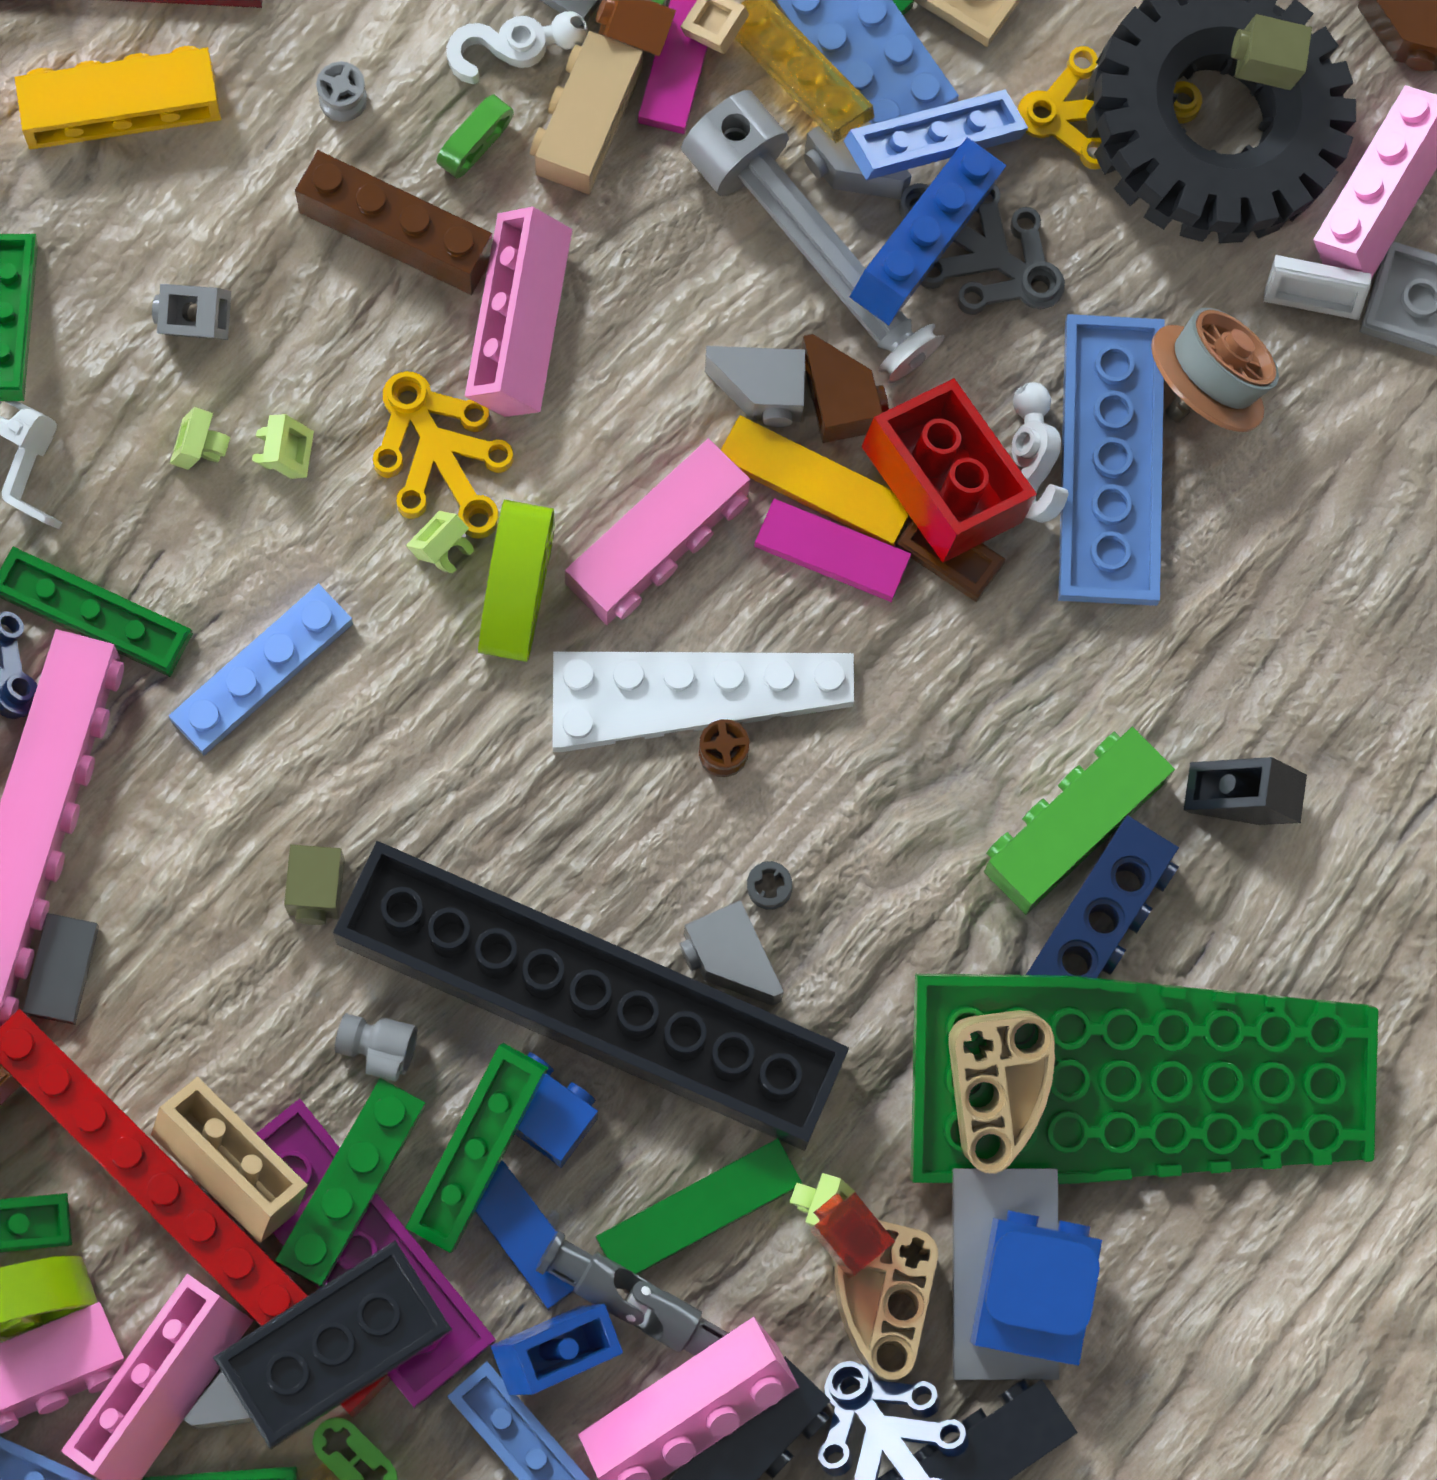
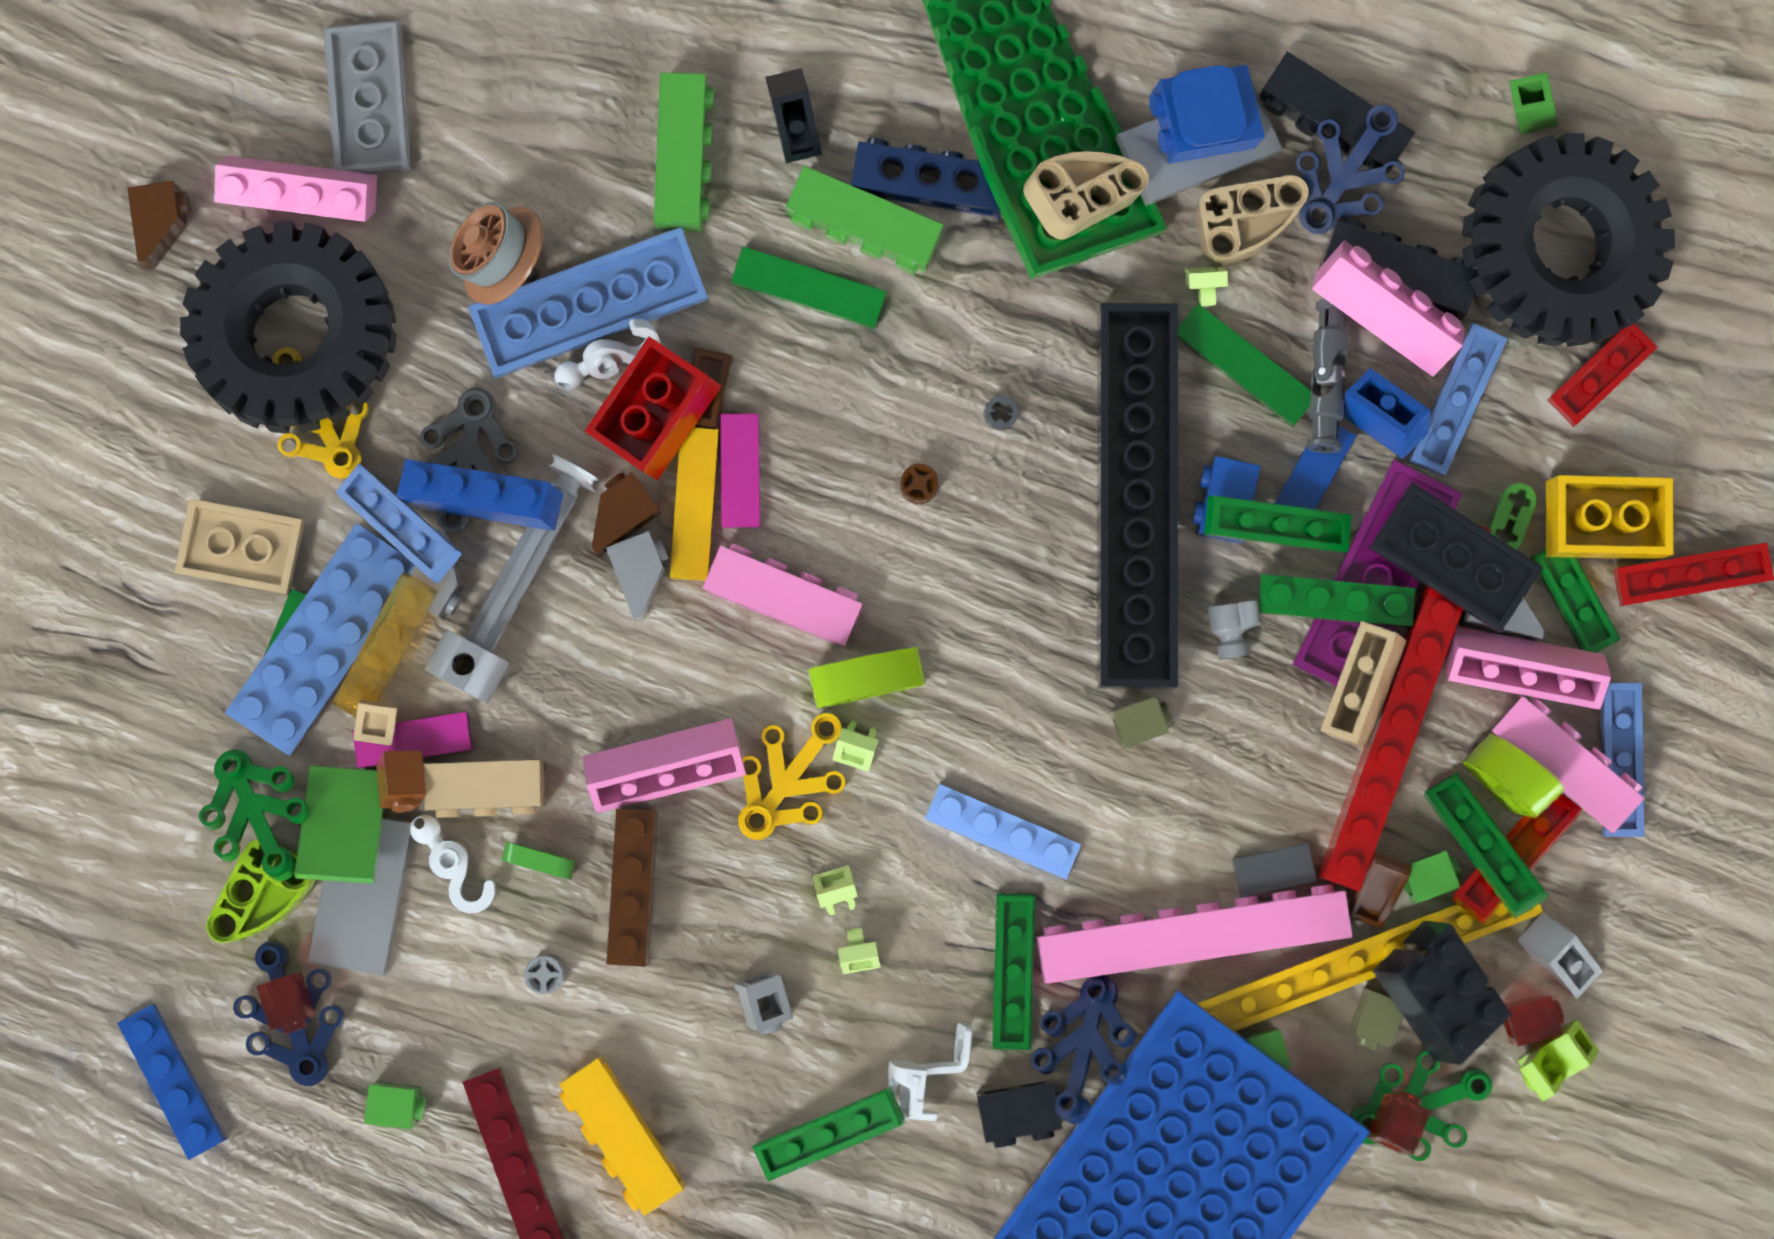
camera: 105 degrees left, 10 degrees up
(657, 693) = (901, 552): white wing -> none
(731, 954) = (1063, 416): light grey slope -> none
(850, 1233) = (1228, 248): clear red brick -> none
(1022, 723) = (808, 287): none -> green tile
(1253, 641) = (681, 152): none -> bright green brick
(1272, 51) = (238, 299): olive brick -> none
(1317, 287) = (395, 208): white tile -> none

